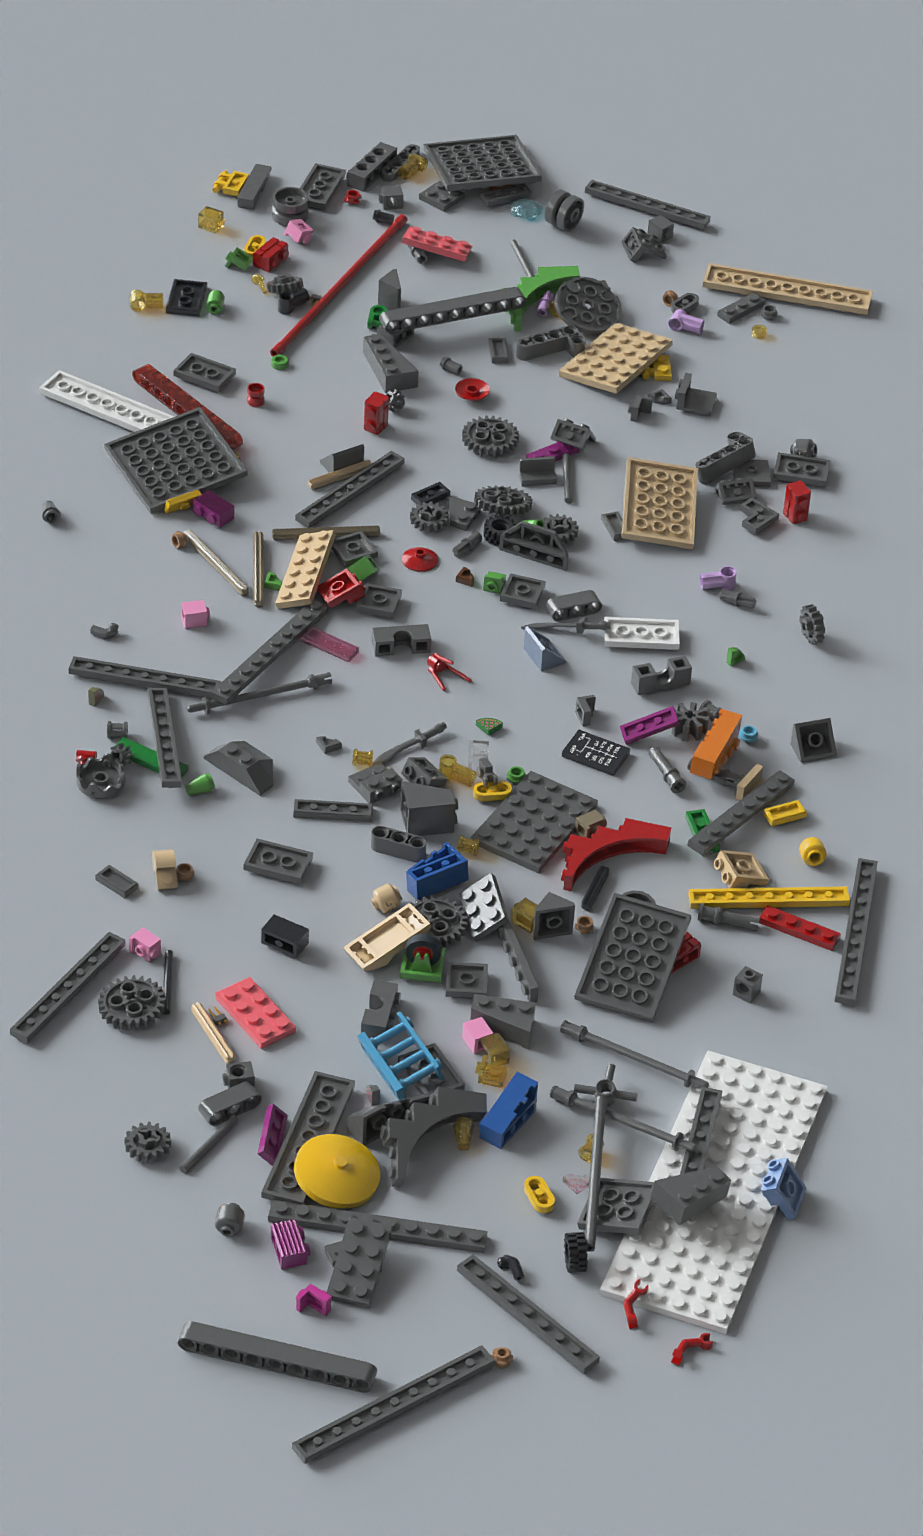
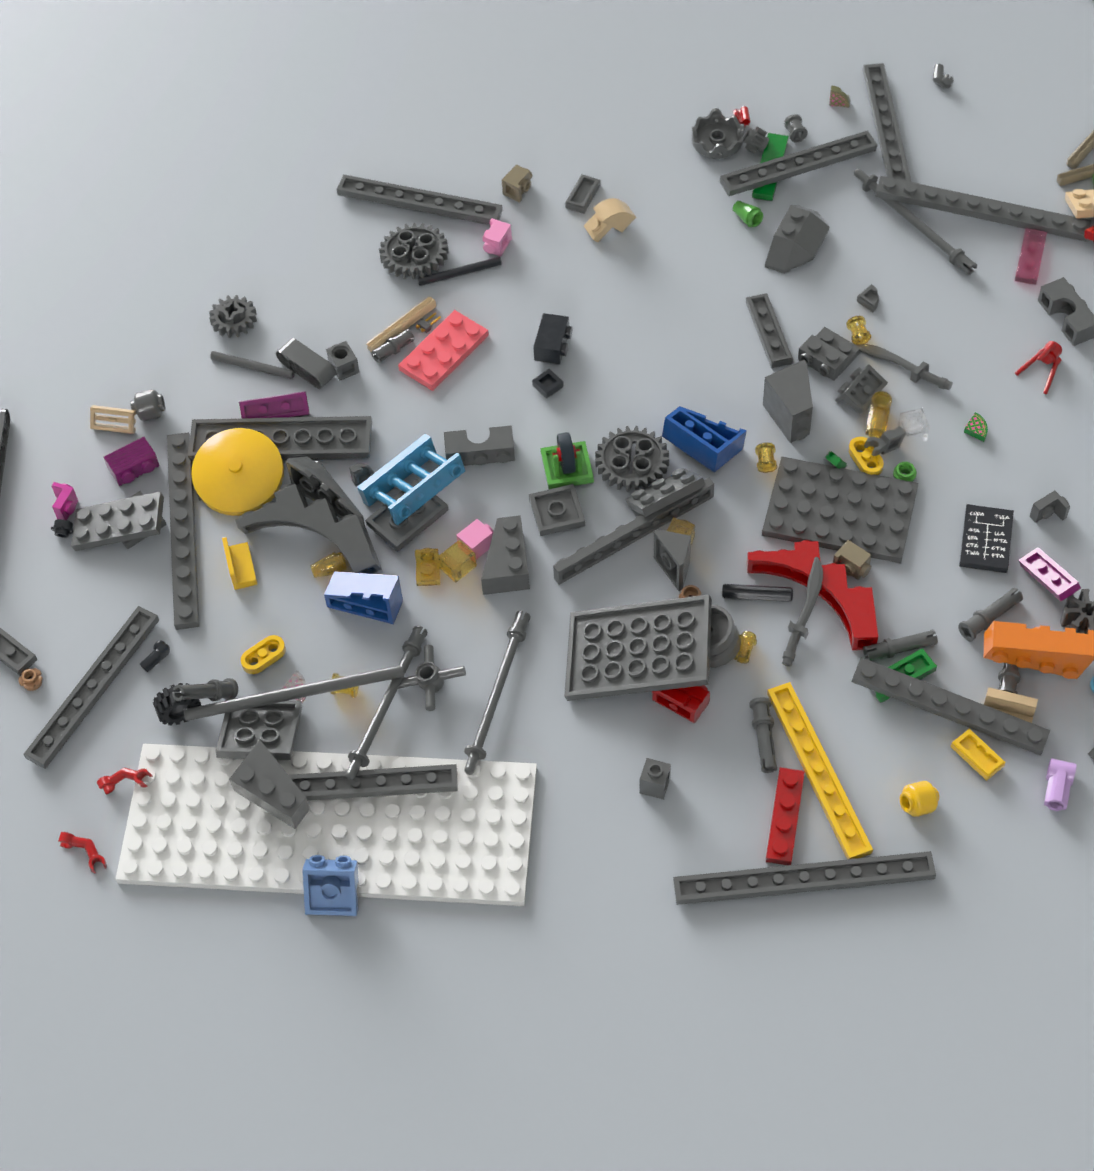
camera: 80 degrees right, 15 degrees up
(86, 917) = (516, 182): none -> dark tan brick
(184, 872) = (616, 238): medium nougat plate -> none
(195, 614) = (1004, 133): bright pink brick -> none
(230, 1246) = (114, 411): none -> tan tile
(237, 1042) = (392, 345): none -> dark grey pin
(278, 861) = (665, 305): dark grey plate -> none
(329, 953) = (547, 383): none -> black plate
(343, 1308) = (62, 528): none -> black plate
(386, 898) = (648, 407): tan head -> none
(387, 938) = (584, 422): tan slope -> none
(398, 844) = (737, 396): dark grey beam -> none
(436, 1194) = (240, 564): none -> yellow panel
(494, 805) = (835, 460): none -> green tile
(575, 1225) = (213, 690): none -> dark grey pin
(641, 872) = (798, 629): none -> dark grey sword
(676, 823) = (895, 646): none -> dark grey pin
(740, 869) = (849, 728): tan plate -> none
(818, 777) = (1060, 778): none -> lavender piece

